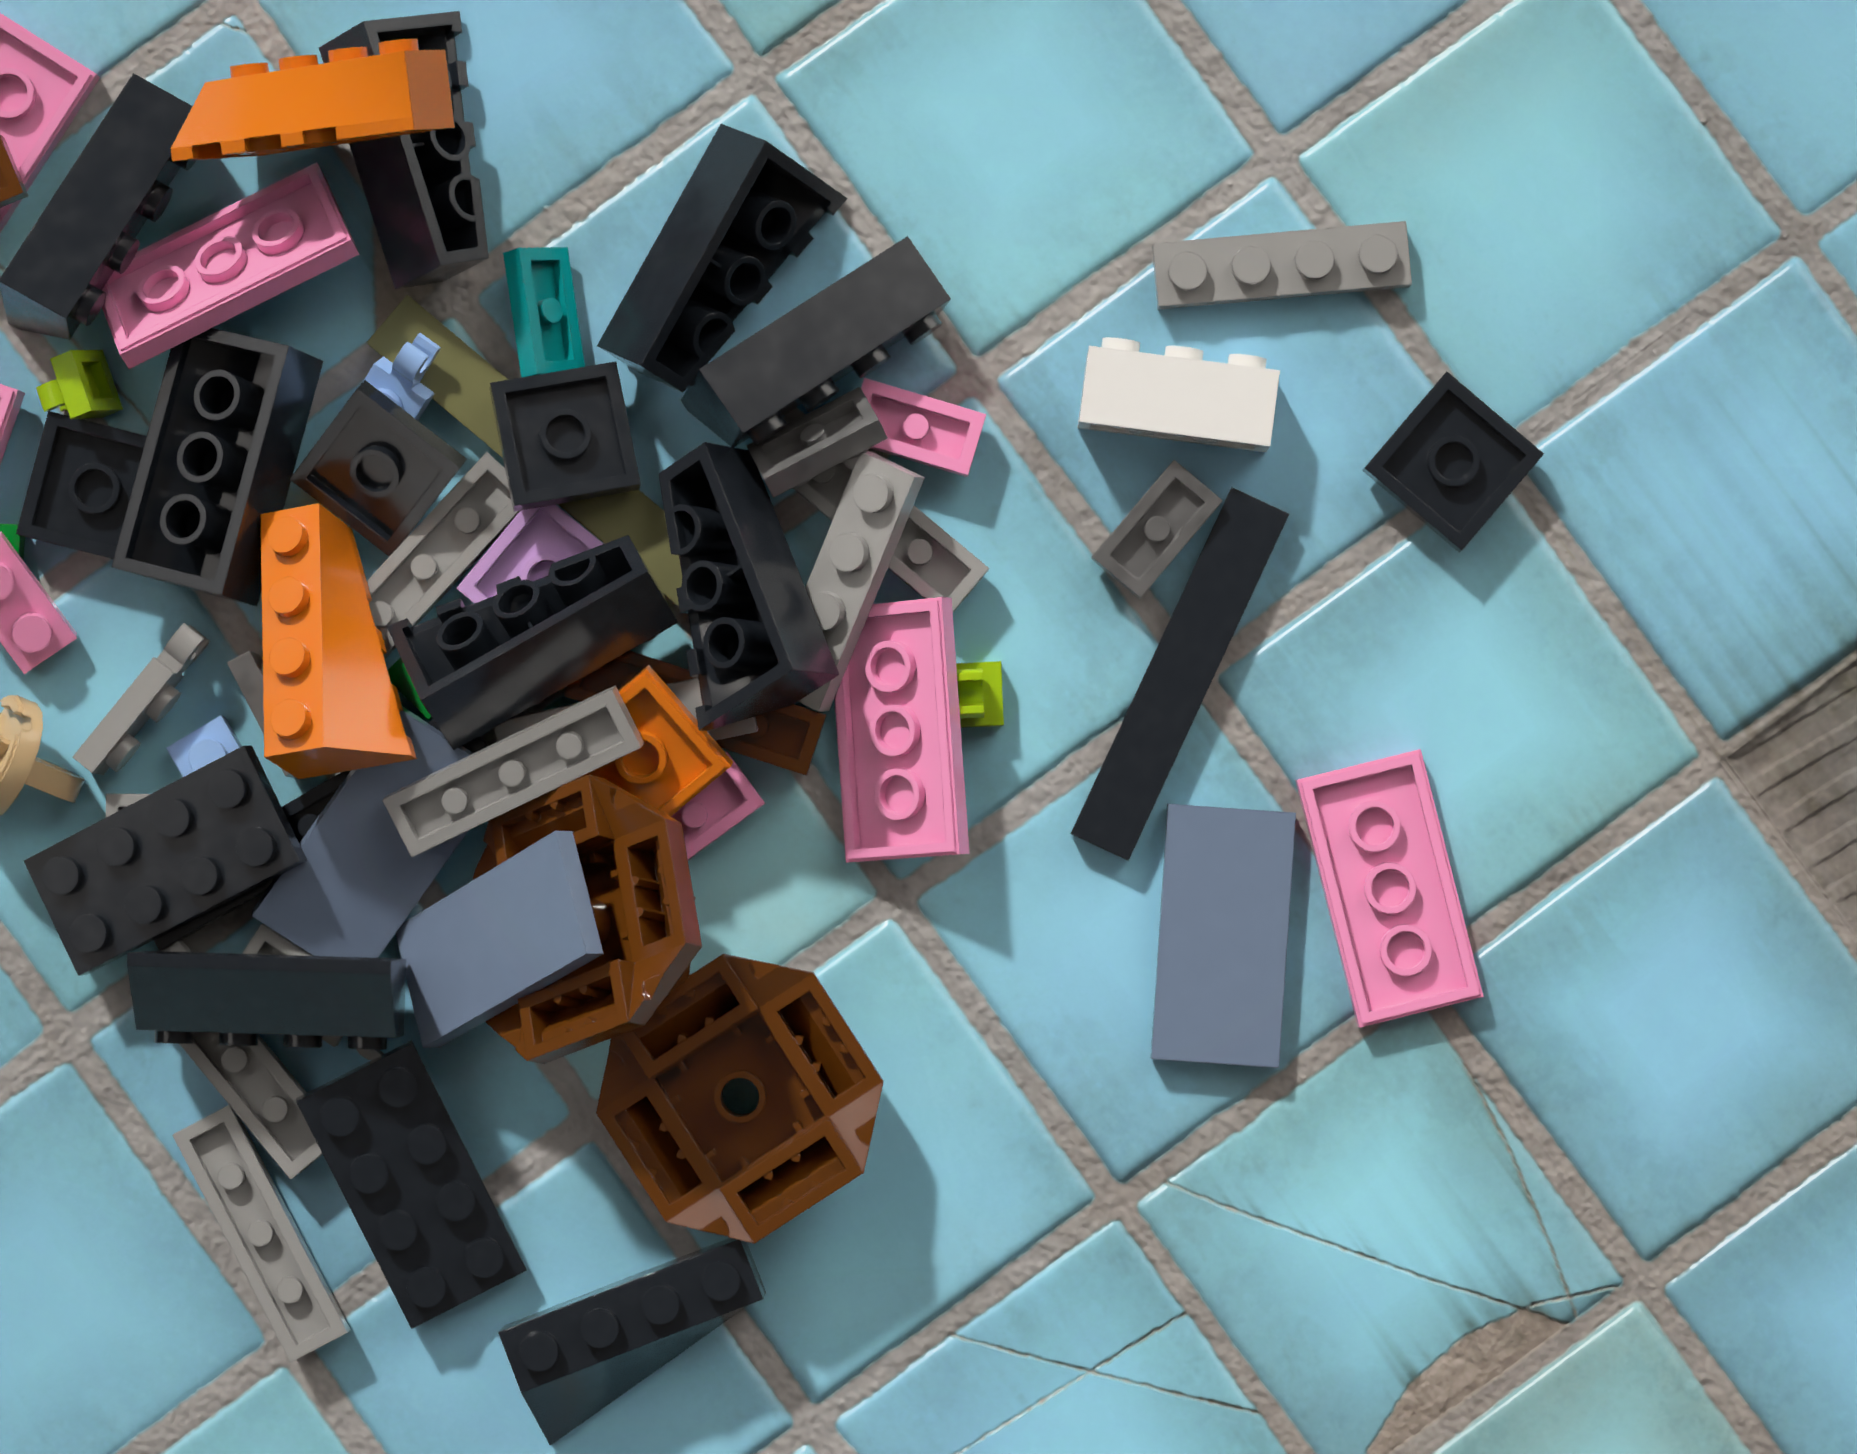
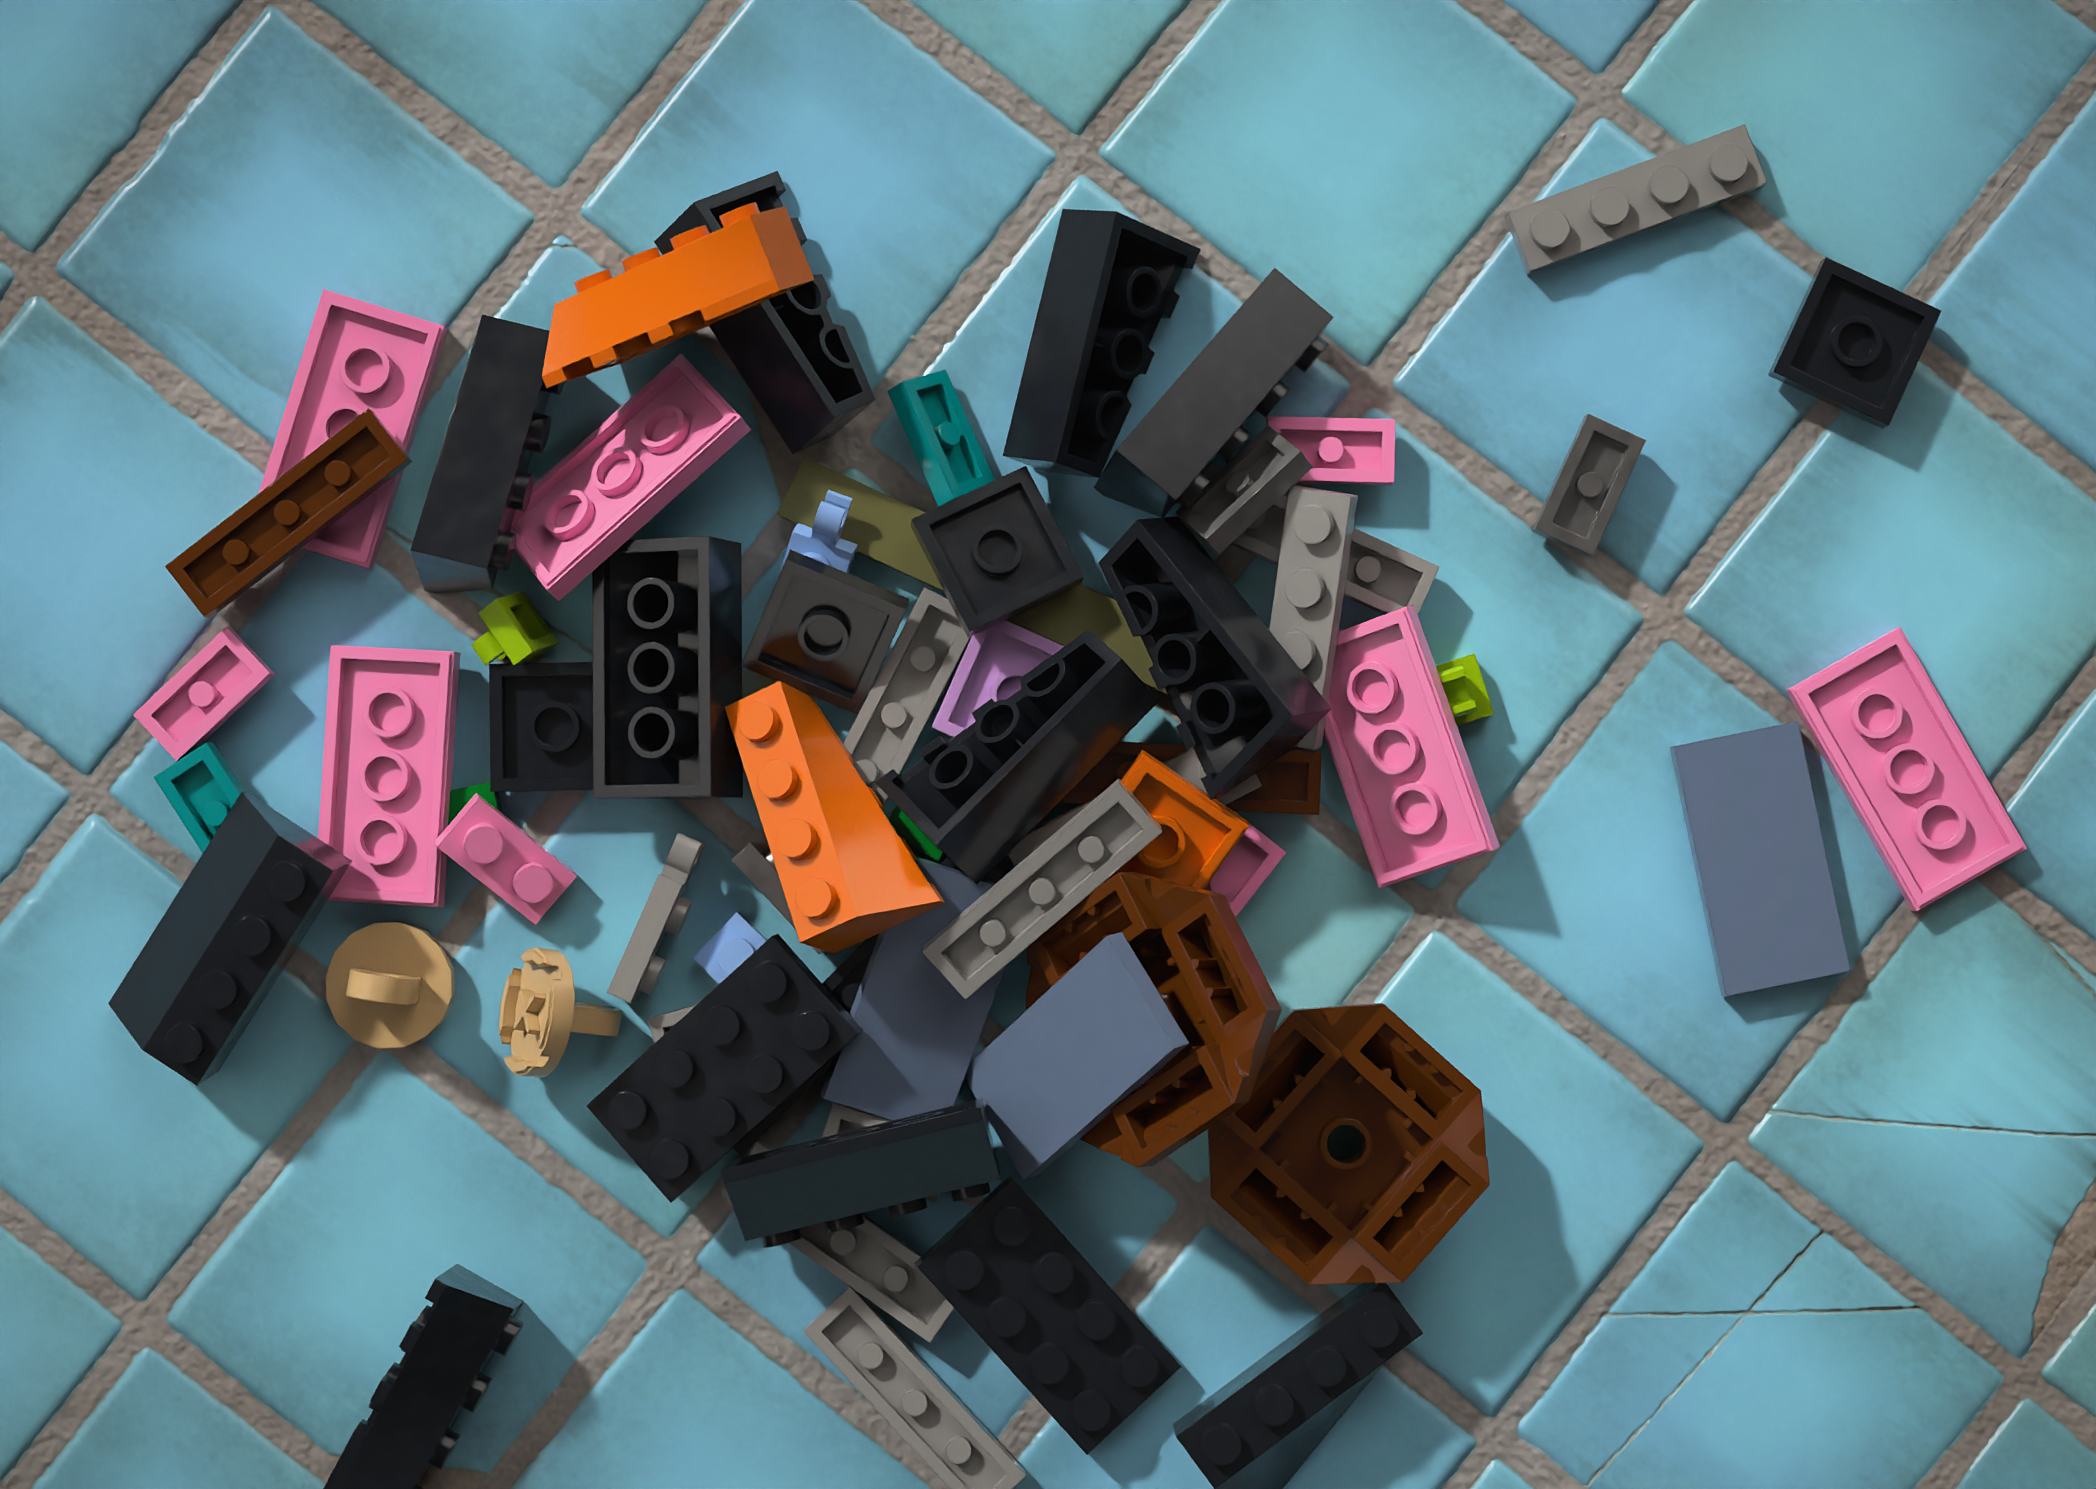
camera: 25 degrees left, 0 degrees up
(1179, 395) = (1575, 351): white brick -> none
(1179, 674) = (1648, 618): black tile -> none

